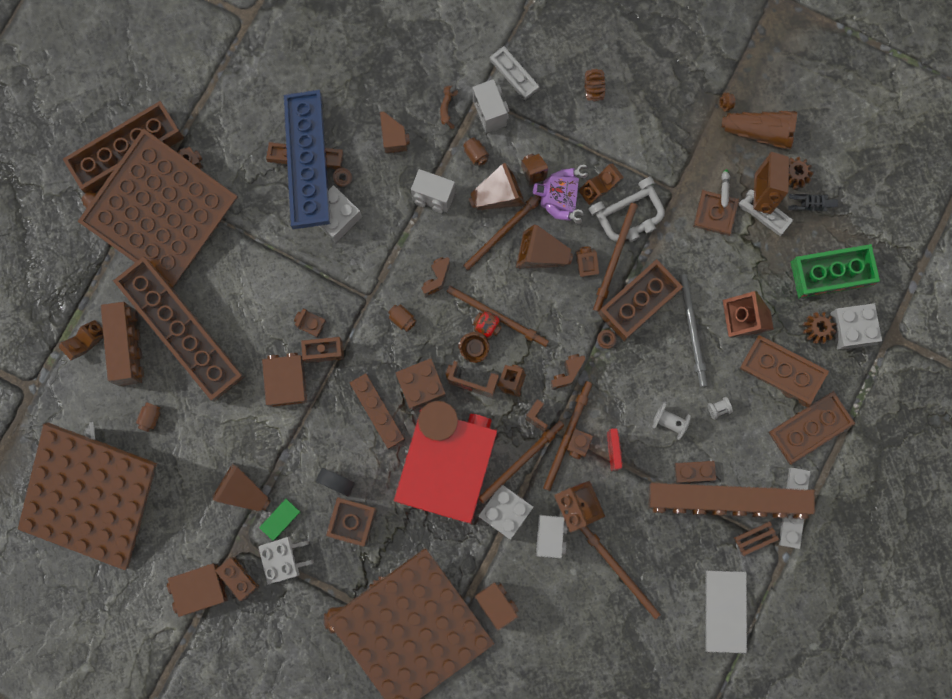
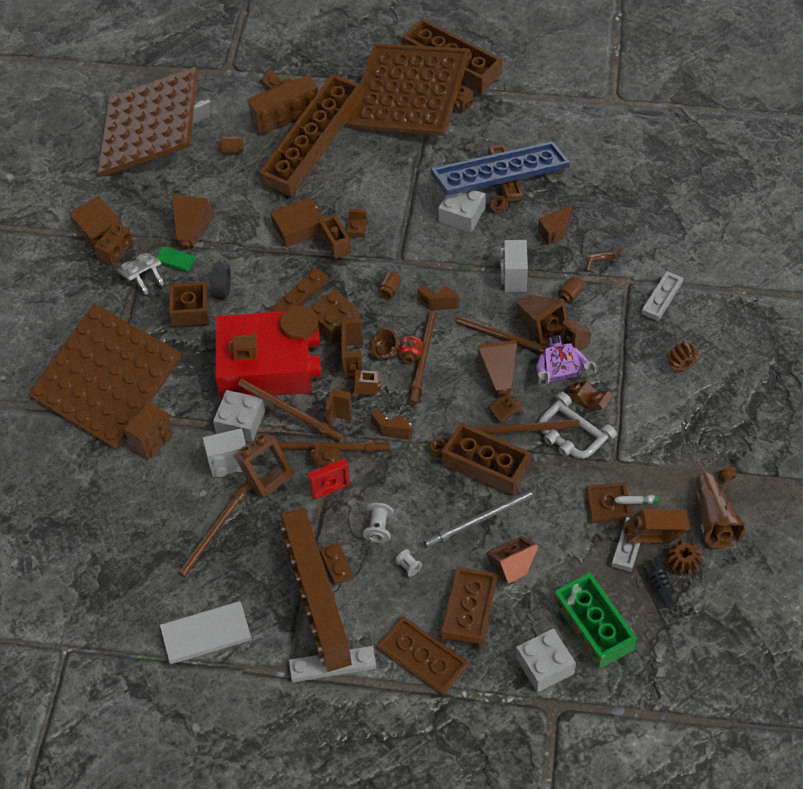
camera: 70 degrees right, 25 degrees down
(450, 484) = (244, 347): none -> reddish brown brick
(489, 105) = (617, 282): light grey brick -> none
(771, 532) = (277, 626): reddish brown tile -> none
(825, 324) = (527, 620): reddish brown gear -> none

